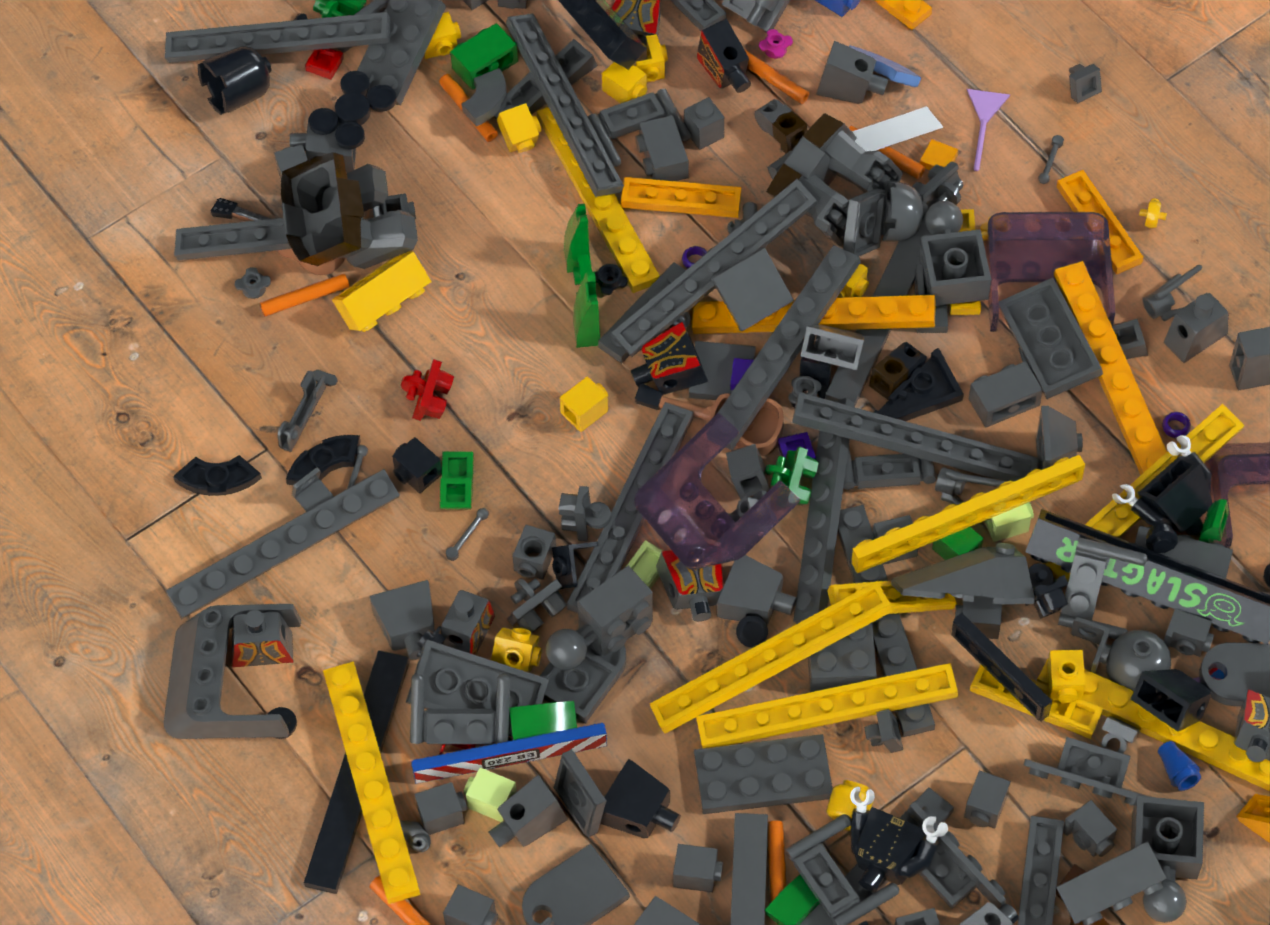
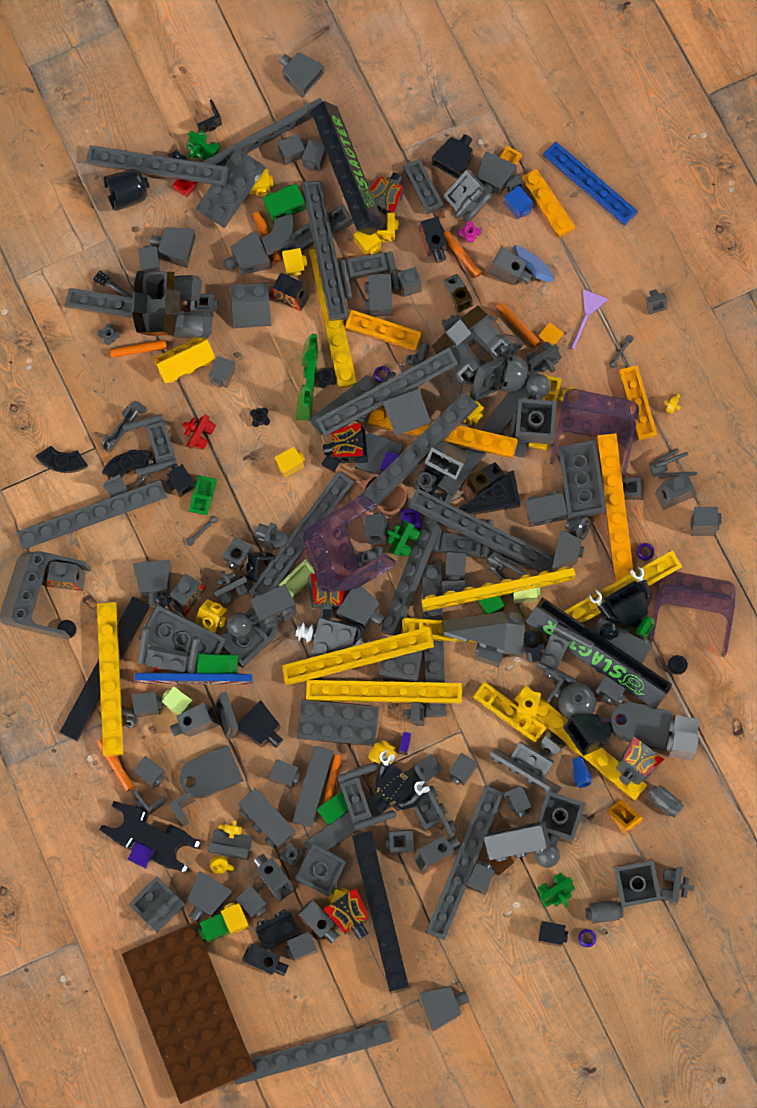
camera: 15 degrees right, 15 degrees up
(352, 109) = (192, 229): black piece -> none
(368, 416) = (160, 443): none -> dark grey plate
(444, 300) = (221, 372): none -> dark grey brick
(447, 135) = (248, 255): none -> dark grey torso
(467, 200) = (251, 305): none -> dark grey slope
(516, 346) = (260, 412): none -> black plate
(523, 168) = (288, 290): none -> black torso
(713, 642) = (329, 636): none -> dark grey plate
(882, 780) = (405, 742): none -> dark purple tile
(887, 499) = (455, 566): none -> dark grey brick
(897, 129) = (528, 311): white sticker -> none
(1001, 667) = (491, 691): black tile -> none
(1066, 402) = (578, 527): none -> dark grey brick

